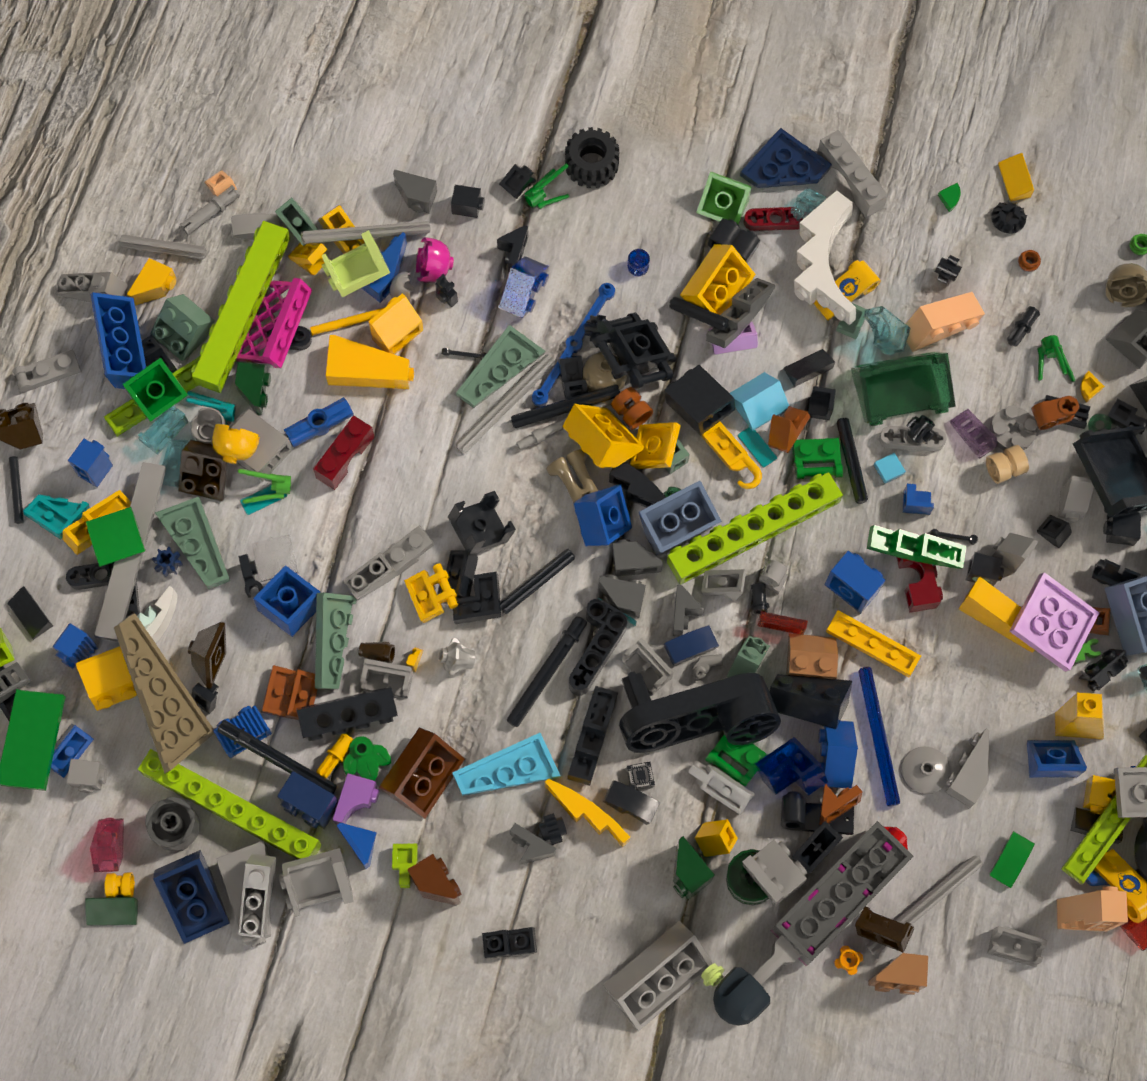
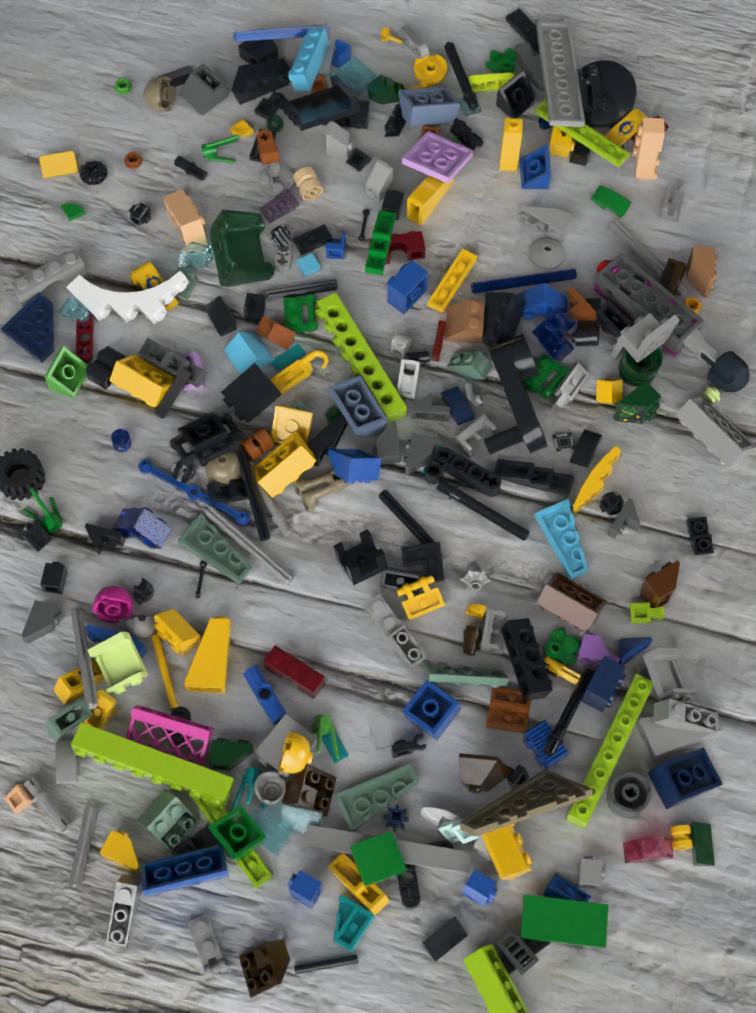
camera: 90 degrees left, 5 degrees down
(925, 472) = (312, 239): none -> black plate

